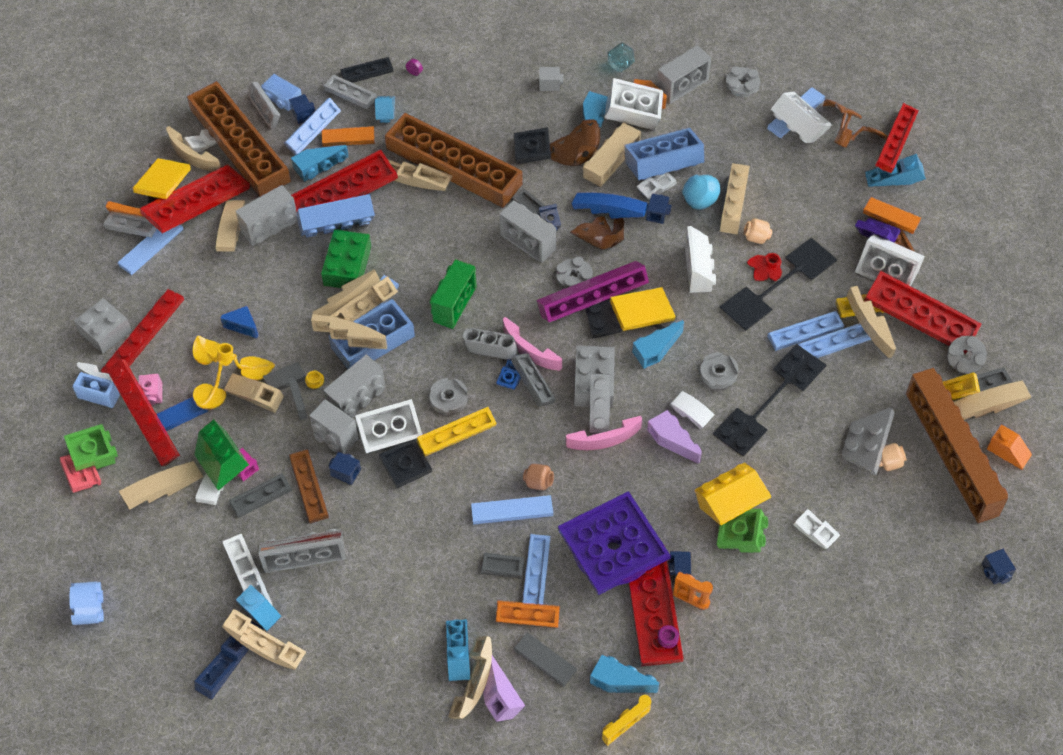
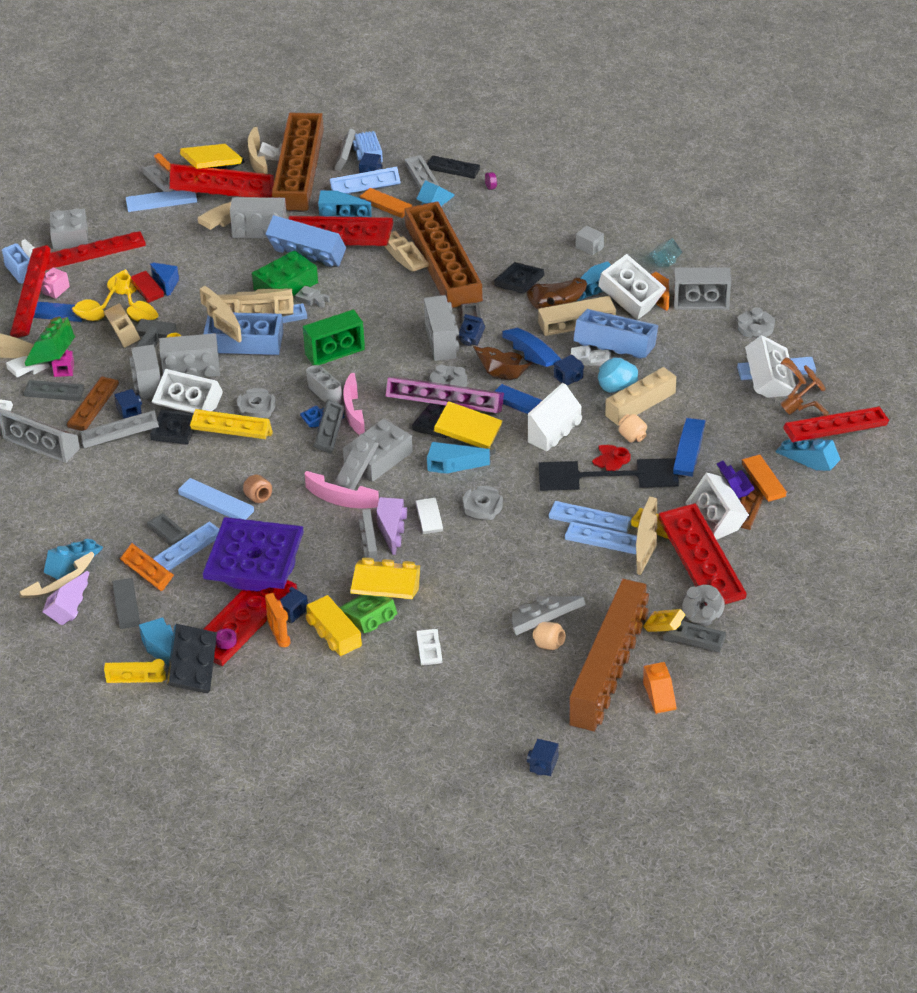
camera: 40 degrees right, 15 degrees down
(240, 342) = (147, 286): none -> red tile
(362, 497) = (119, 429): none -> light grey tile
(382, 263) = (309, 296): none -> light grey plate
(650, 258) = (518, 399): none -> blue tile
(666, 676) = (191, 658): none -> black plate
(672, 462) = (368, 537): none -> light grey plate
(731, 562) = (333, 625): none -> yellow brick
(742, 430) = (458, 552): black hinge -> none
(814, 221) = (689, 447): none -> blue slope
(993, 399) = (687, 648): tan slope -> none

